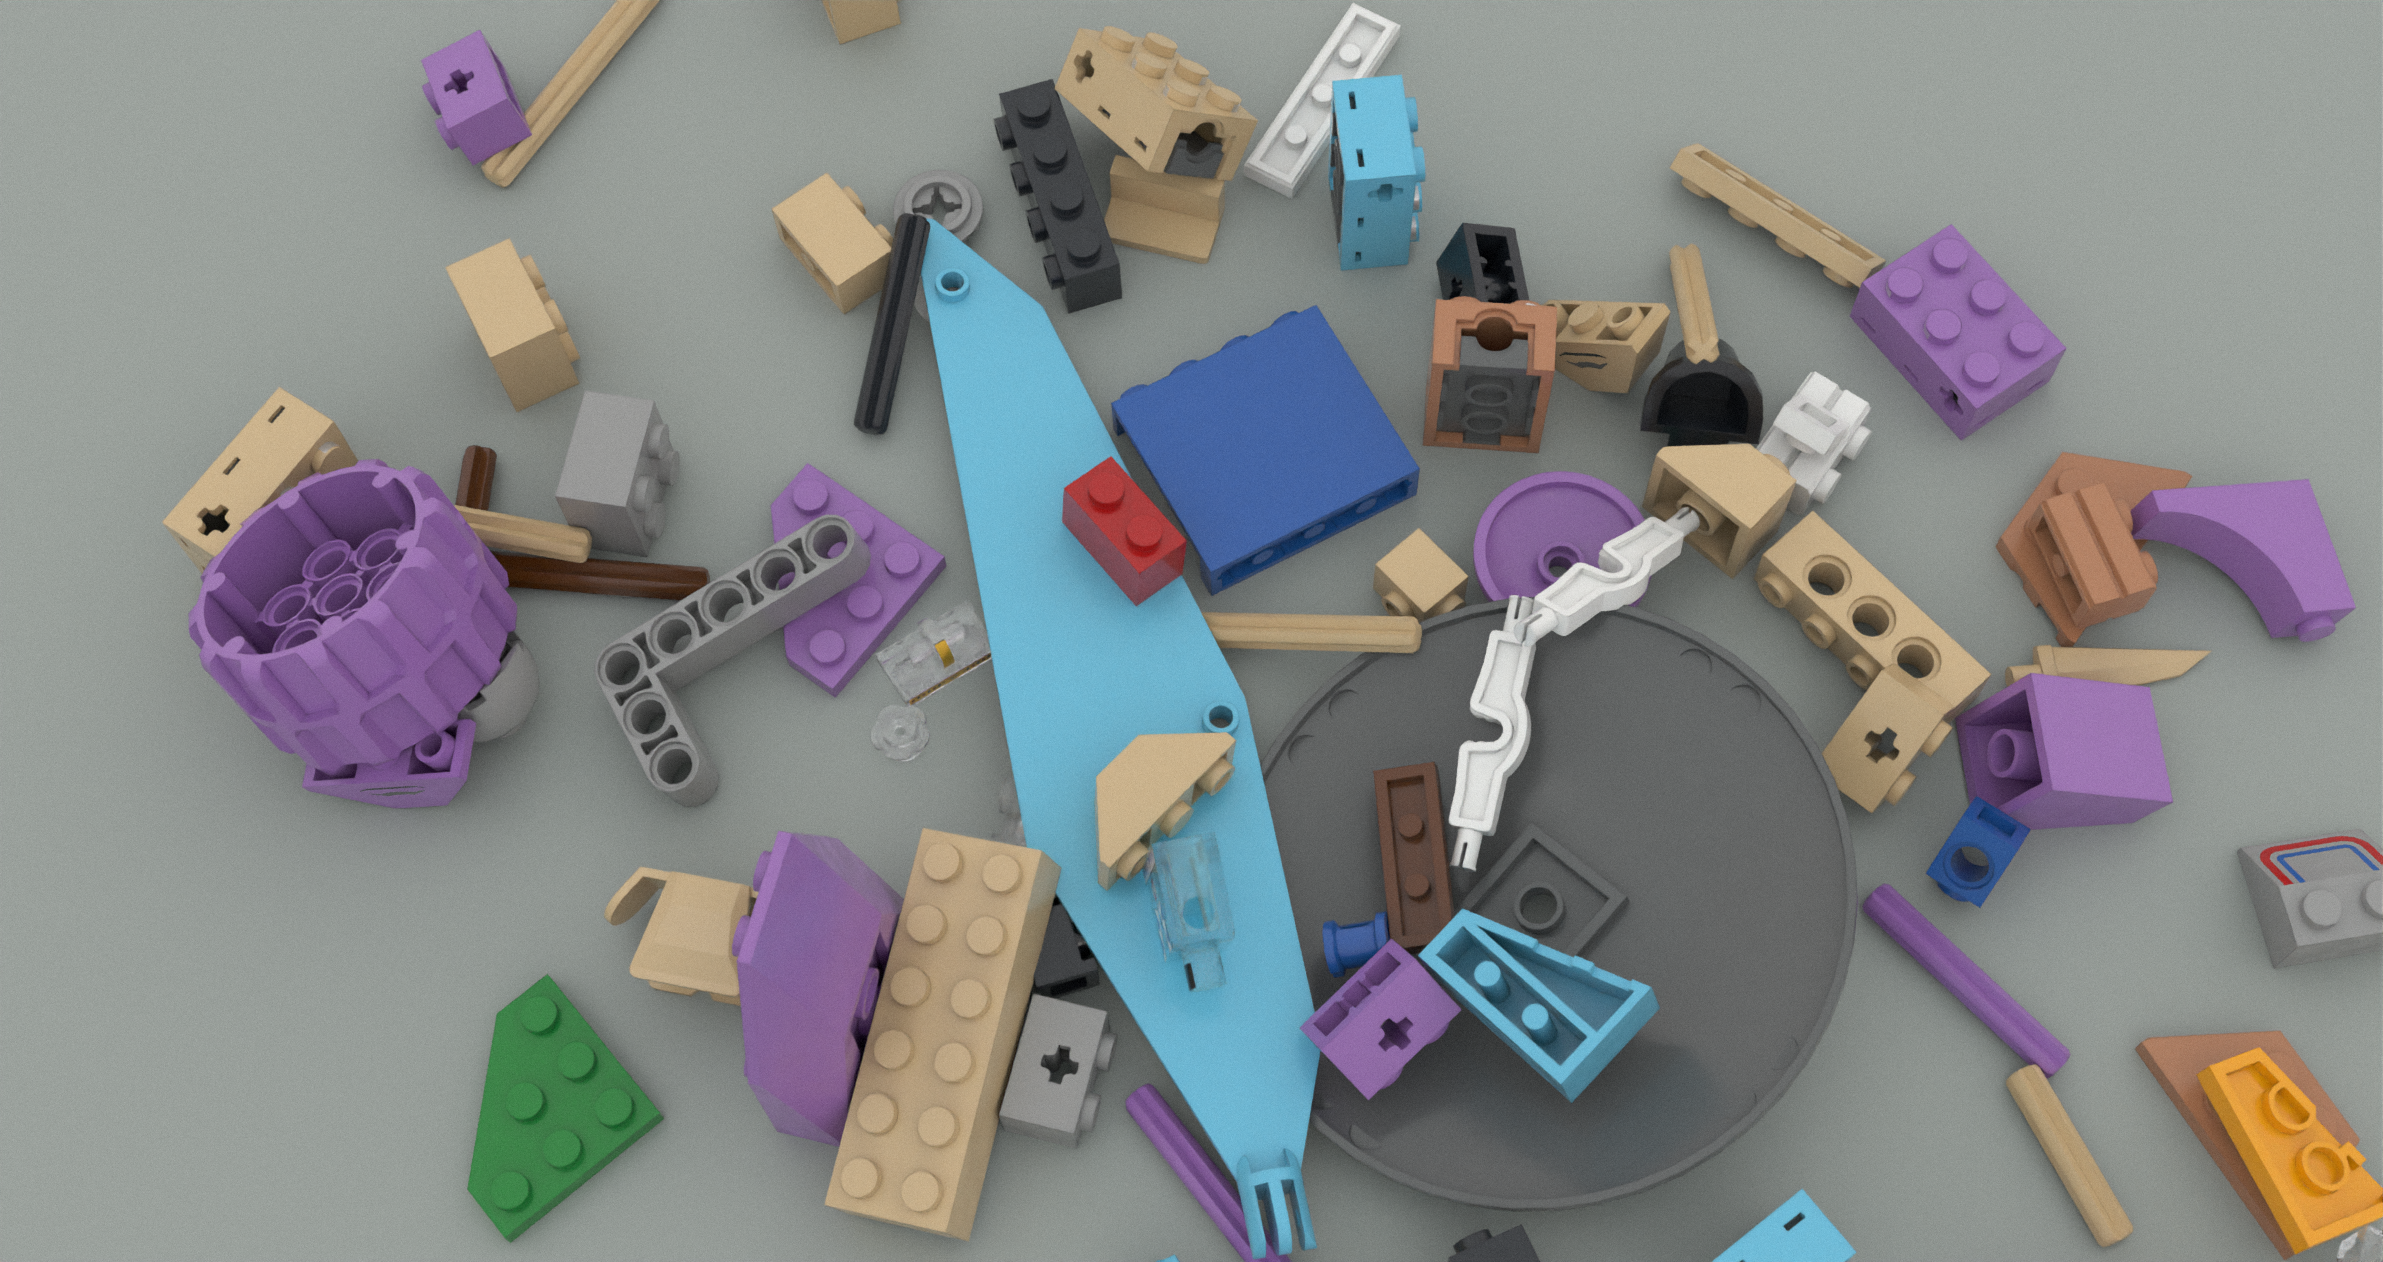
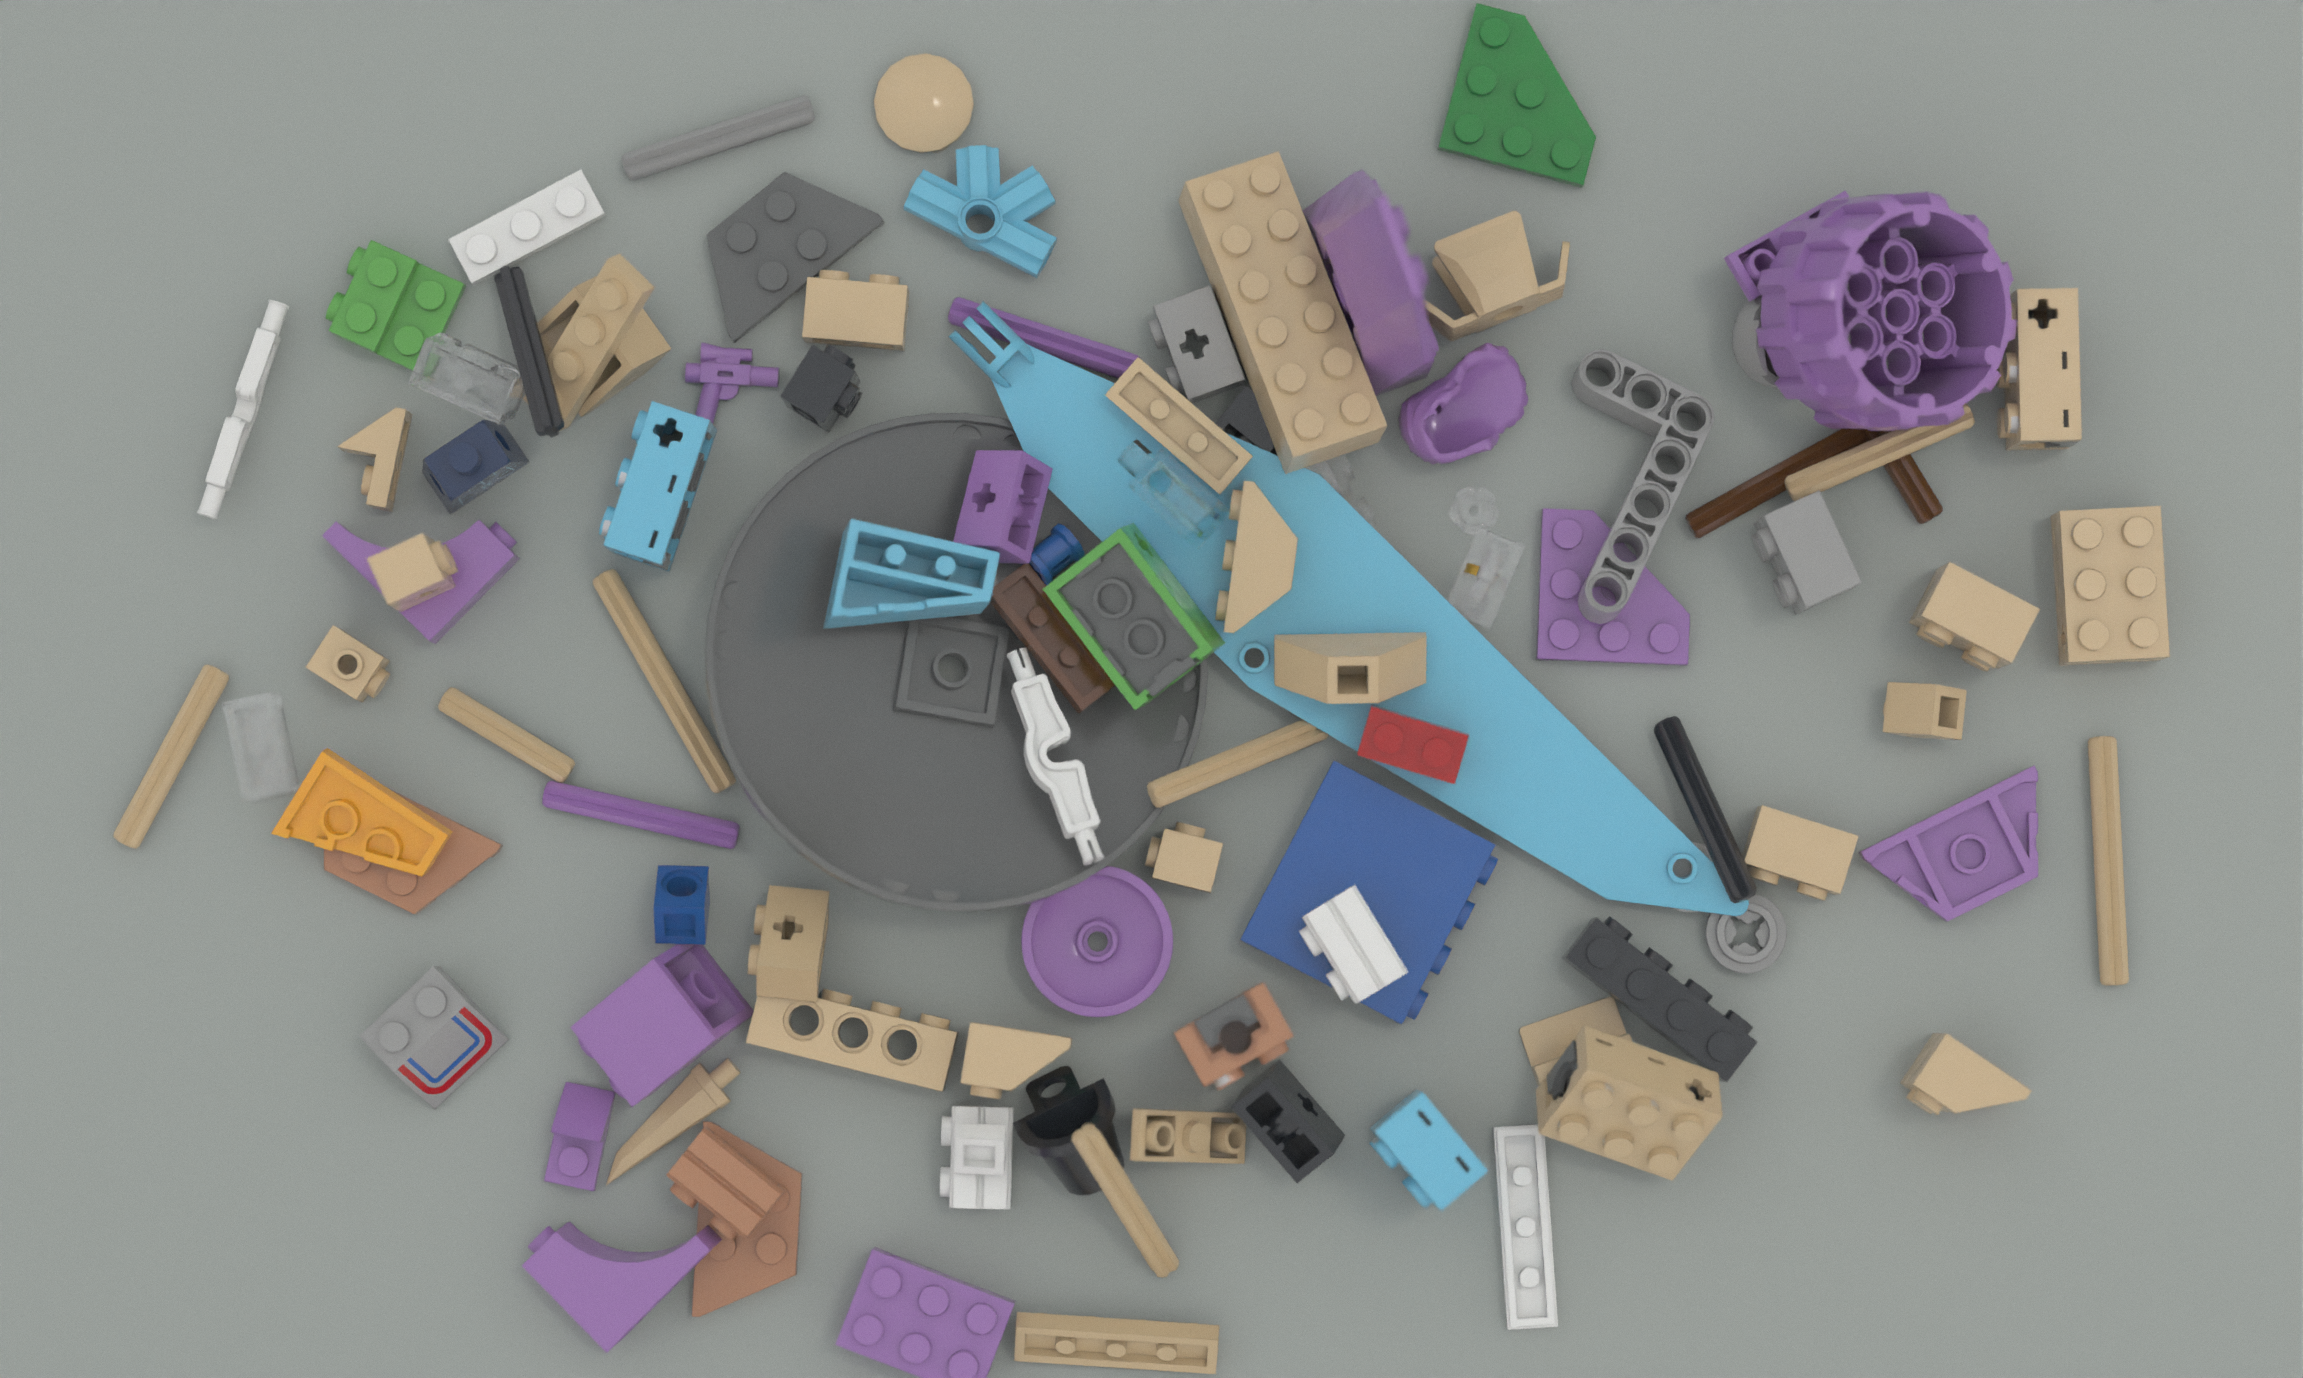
camera: 145 degrees right, 20 degrees up
(371, 286) = (2110, 585): none -> tan piece
(474, 98) = (2172, 799): medium lavender brick -> none
(627, 281) = (1924, 710): none -> tan brick
(684, 157) = (1967, 849): none -> medium lavender wing
(858, 808) = (1475, 402): none -> medium lavender piece
(1134, 636) = (1350, 665): none -> tan slope
(1136, 981) = (1178, 425): none -> tan plate
(1314, 384) = (1353, 946): none -> white brick
(1317, 818) = (1134, 616): none -> dark grey piece
(1621, 580) = (1050, 898): white piece -> none
(1858, 1107) = (664, 681): none -> tan axle
(2214, 709) = (579, 1136): none -> medium lavender slope

